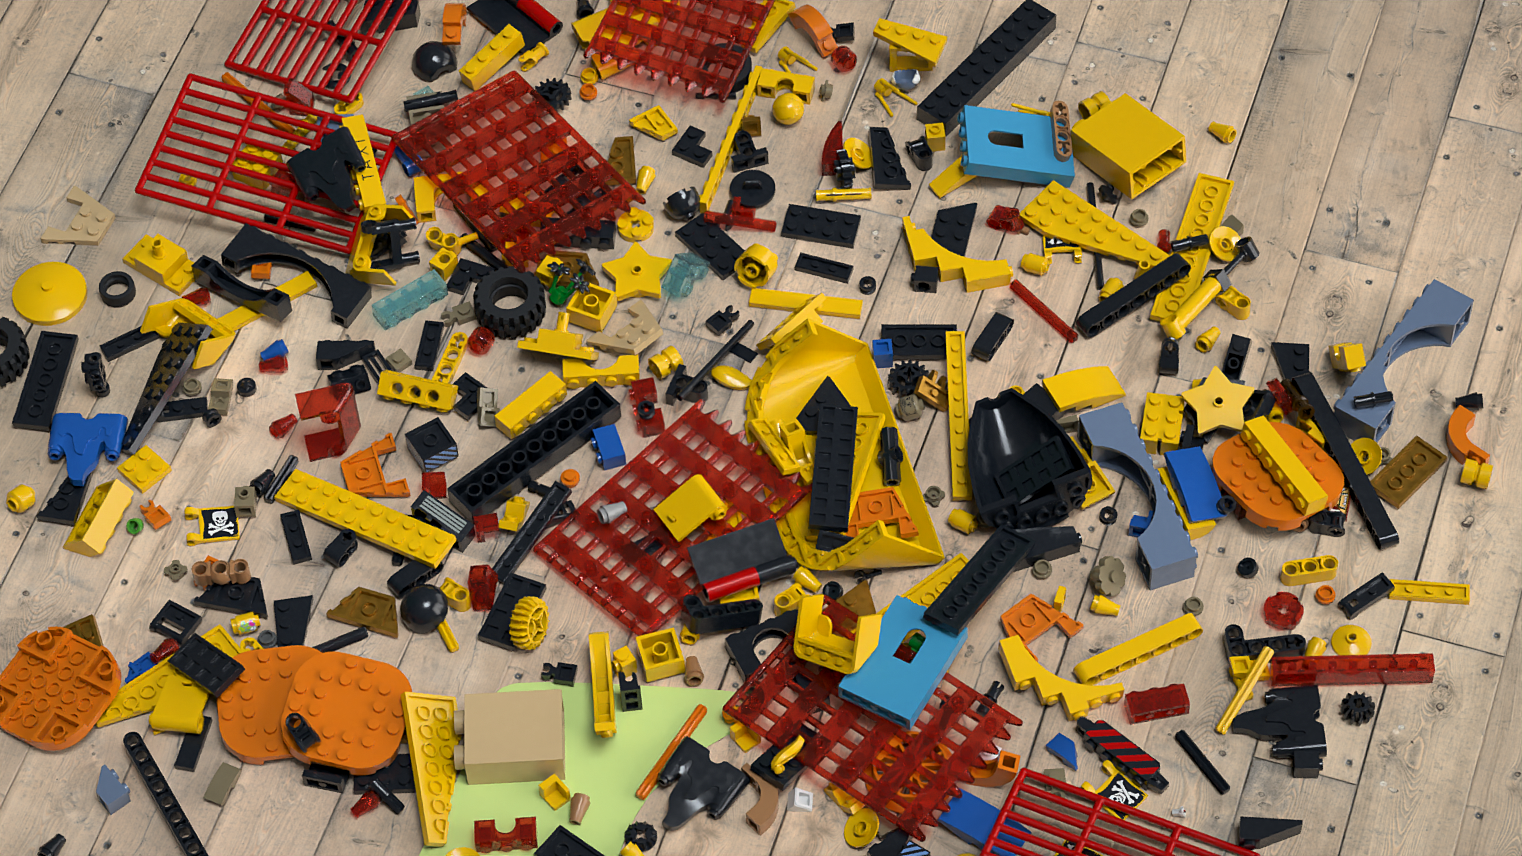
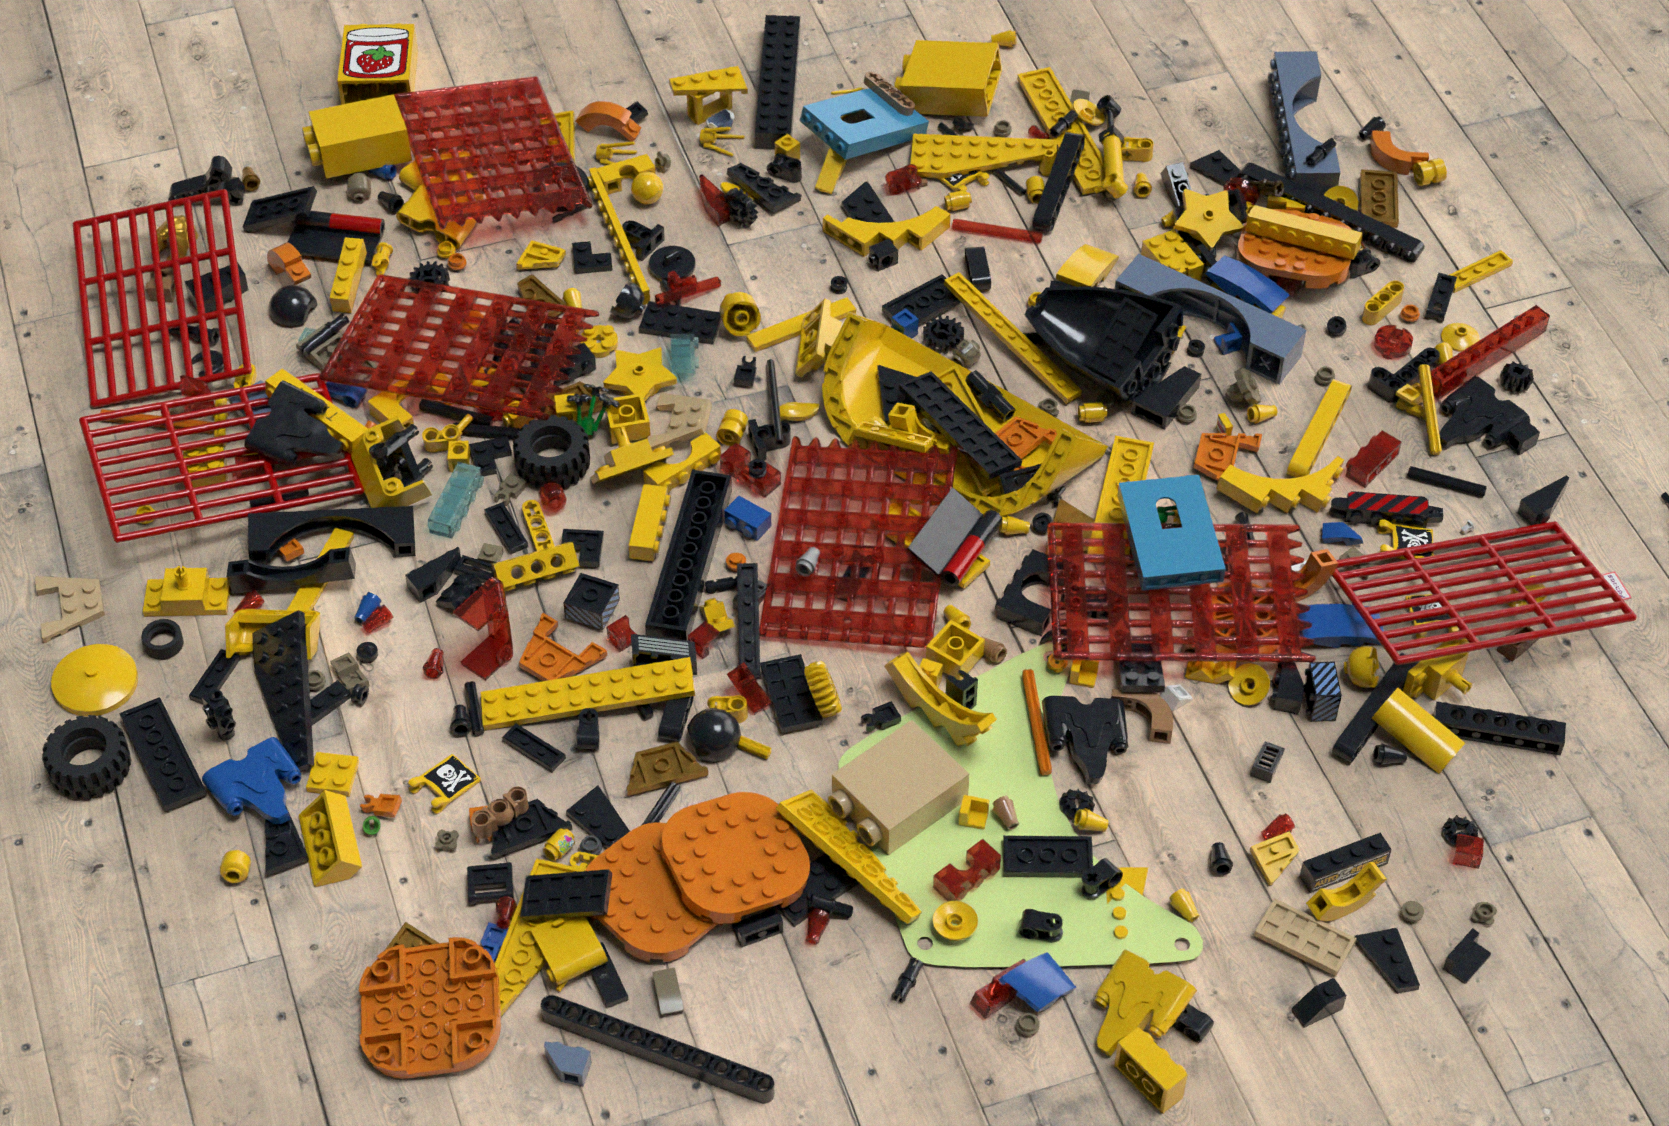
camera: 40 degrees left, 5 degrees down
(245, 501) = (462, 743): dark tan brick -> none
(303, 734) = (723, 890): black piece -> none
(487, 406) = (614, 550): dark tan slope -> none
(690, 506) = (874, 519): yellow door -> none
(719, 617) = (974, 593): black beam -> none
(744, 352) = (784, 388): black sticker -> none
(752, 125) = (627, 213): pearl gold tile -> none
(786, 755) = (1148, 657): yellow arm -> none
(789, 598) = (1016, 550): yellow piece -> none
(818, 644) = (1095, 559): yellow windscreen -> none
(821, 226) = (756, 262): black plate -> none
(824, 268) = (789, 291): black tile -> none
(843, 58) = (654, 131): clear red head -> none
(865, 194) = (736, 238): yellow pin -> none
(933, 392) = (974, 330): pearl gold hinge -> none
(979, 579) = (1167, 438): black plate -> none
(1092, 105) = (891, 66): yellow wheel -> none
(1169, 358) = (1129, 210): black piece -> none
(1231, 501) = (1285, 286): black bush -> none
(1347, 356) = (1266, 138): yellow arch -> none

